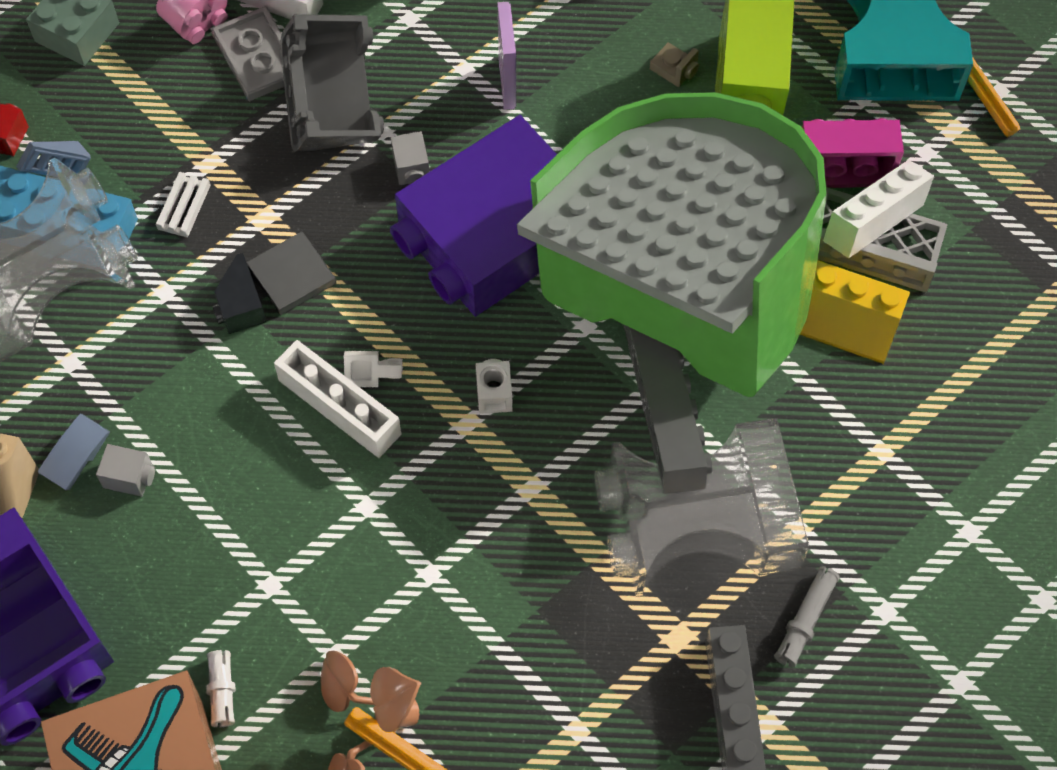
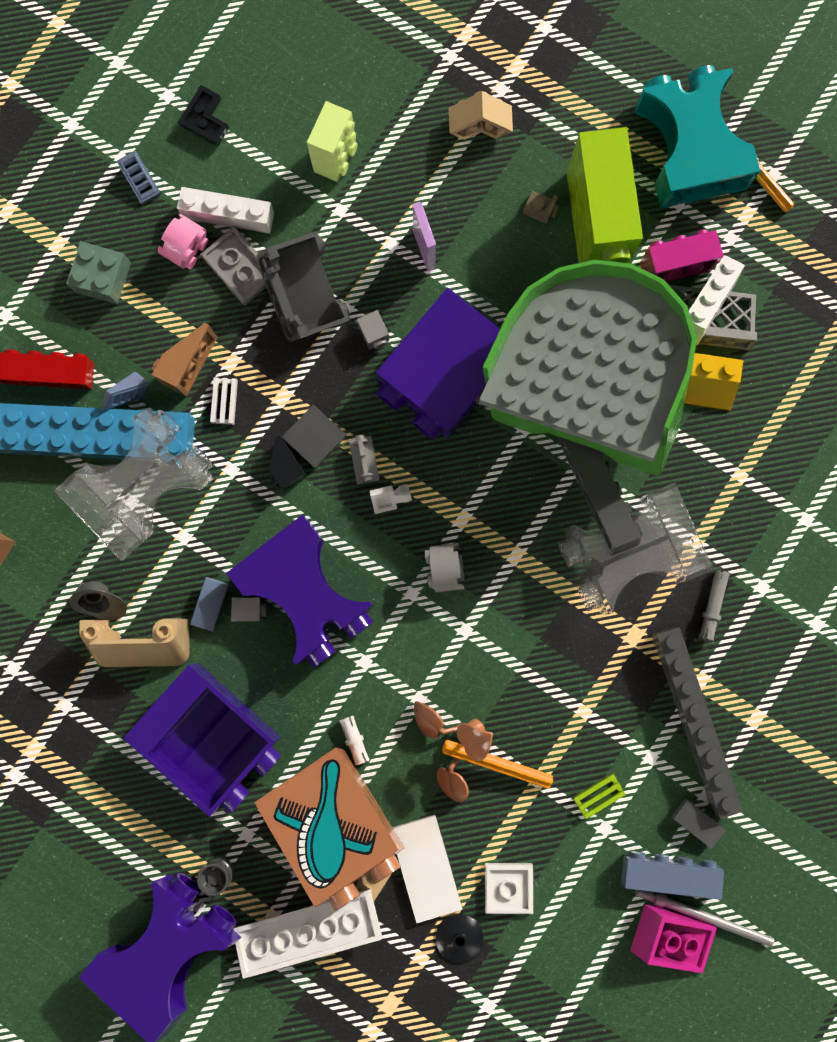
camera: 10 degrees left, 20 degrees up
(147, 138) = (183, 362): none -> medium nougat slope
(200, 432) = (291, 575): none -> dark purple brick
(338, 398) = (374, 527): white brick -> none
(350, 314) = (364, 459): none -> light grey hinge
(422, 471) = (445, 567): none -> light grey brick
(494, 399) = (475, 501): white brick -> none

